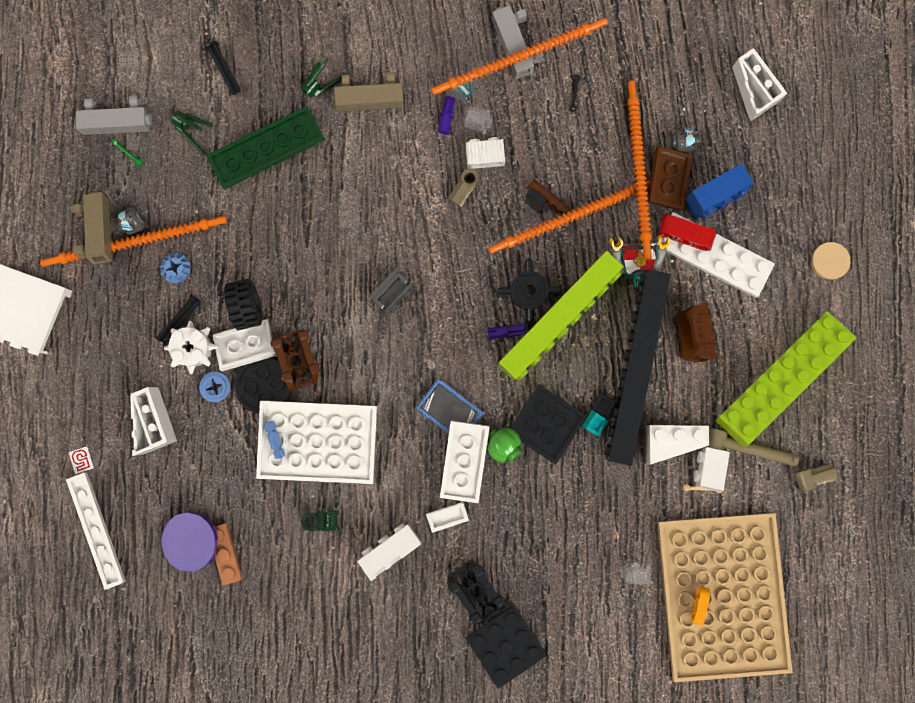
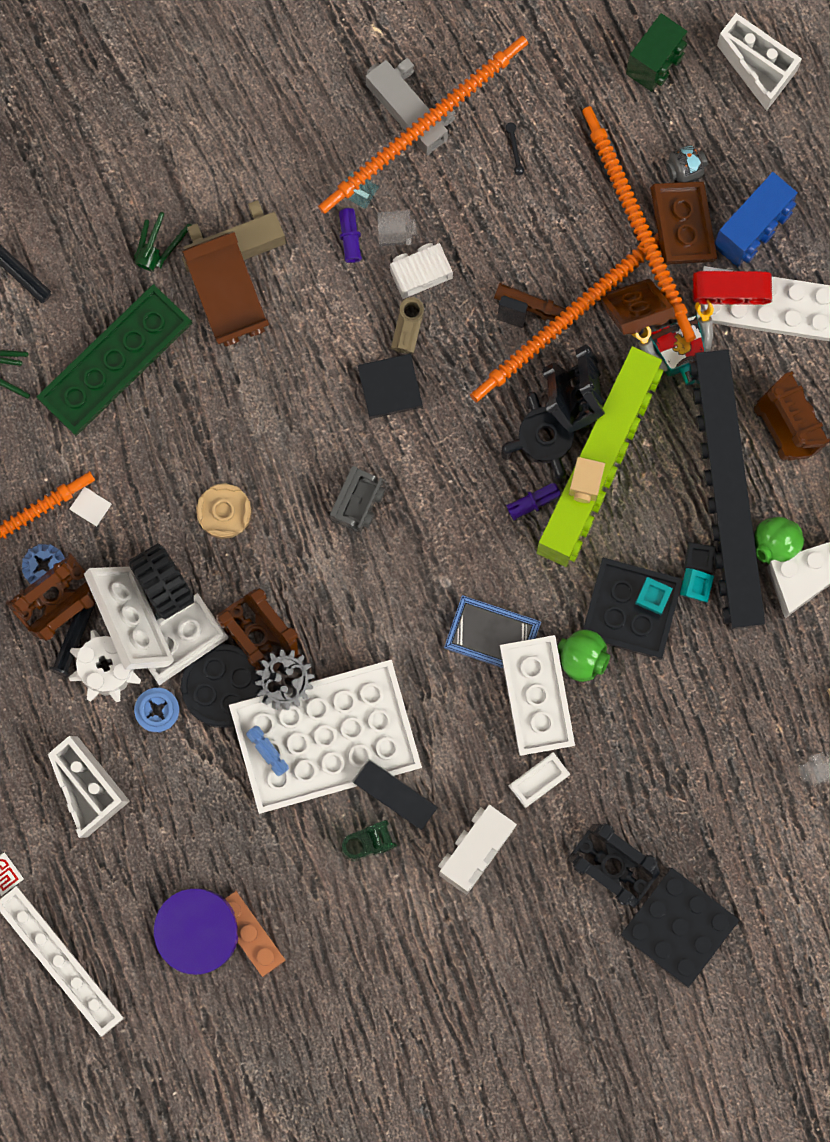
camera: 20 degrees left, 5 degrees down
(173, 299) = (58, 609): none -> reddish brown piece
(212, 323) = (128, 618): none -> white plate
(218, 238) = (90, 506): none -> white sticker
(303, 270) = (223, 511): none -> tan tile
(309, 402) = (287, 664): none -> gear
(349, 495) = (395, 794): none -> black tile
(352, 123) = (225, 289): none -> reddish brown panel
(438, 223) = (390, 386): none -> black tile
(544, 332) = (586, 480): none -> tan brick
(550, 271) = (566, 401): none -> black piece
(564, 422) = (654, 596): none -> teal plate
(619, 225) = (637, 306): none -> reddish brown plate
(659, 412) = (778, 539): none -> bright green plant
(691, 58) = (657, 52): none -> dark green brick

